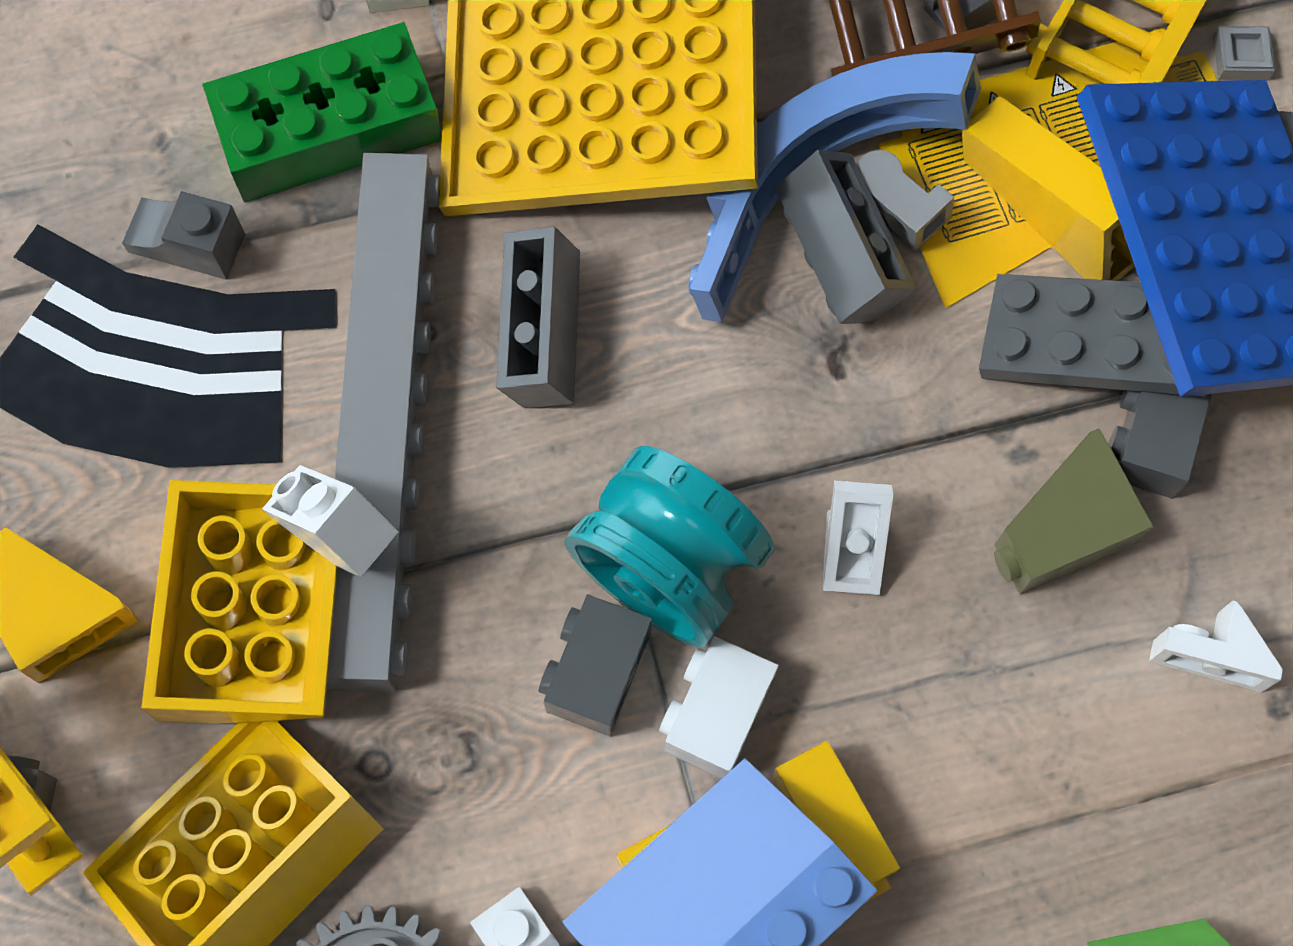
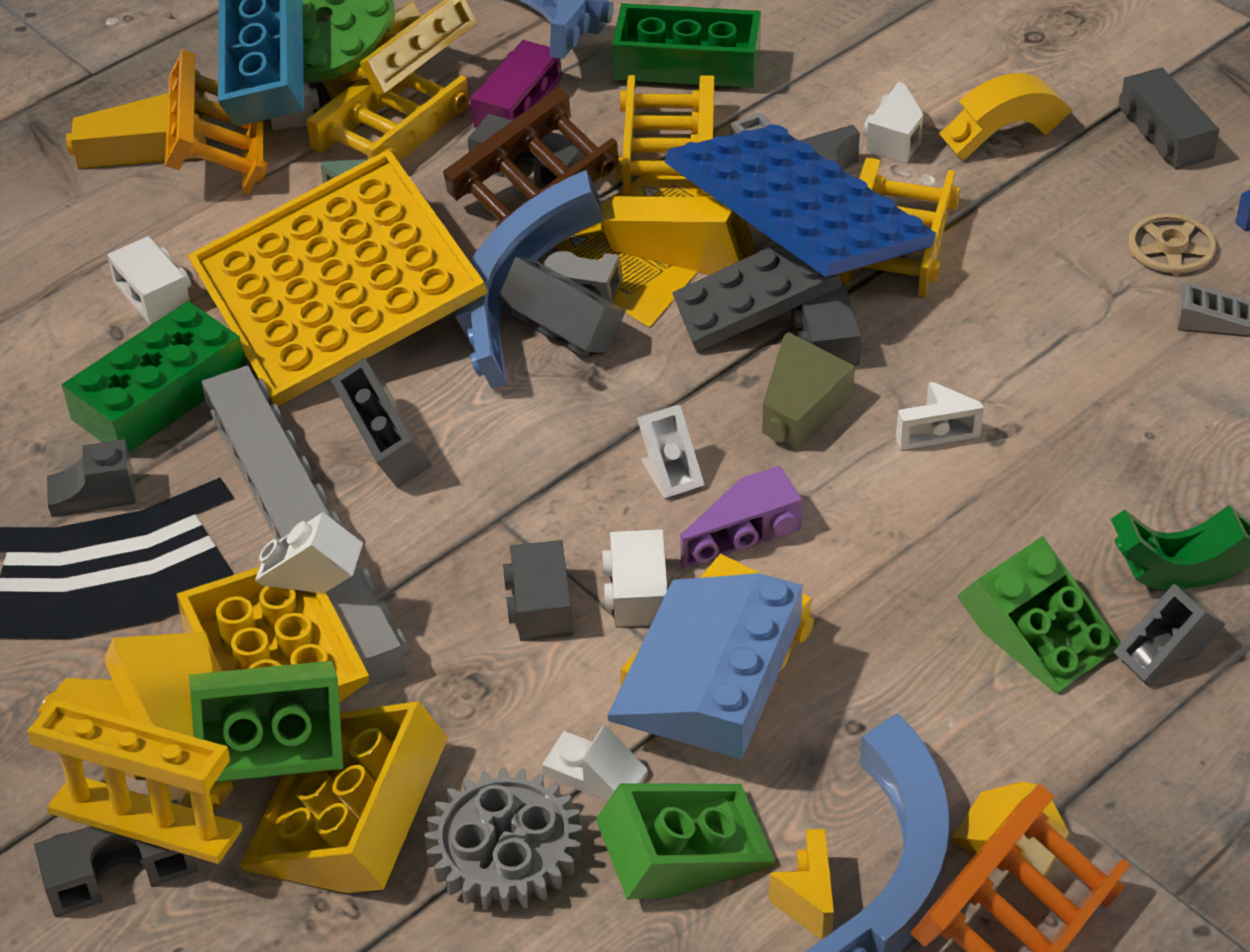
camera: 25 degrees left, 25 degrees down
(88, 647) = (156, 690): none -> yellow slope
(161, 735) = (270, 718): none -> bright green slope
(668, 543) = (551, 485): teal piece -> none
(910, 678) = (747, 514): none -> medium lavender slope

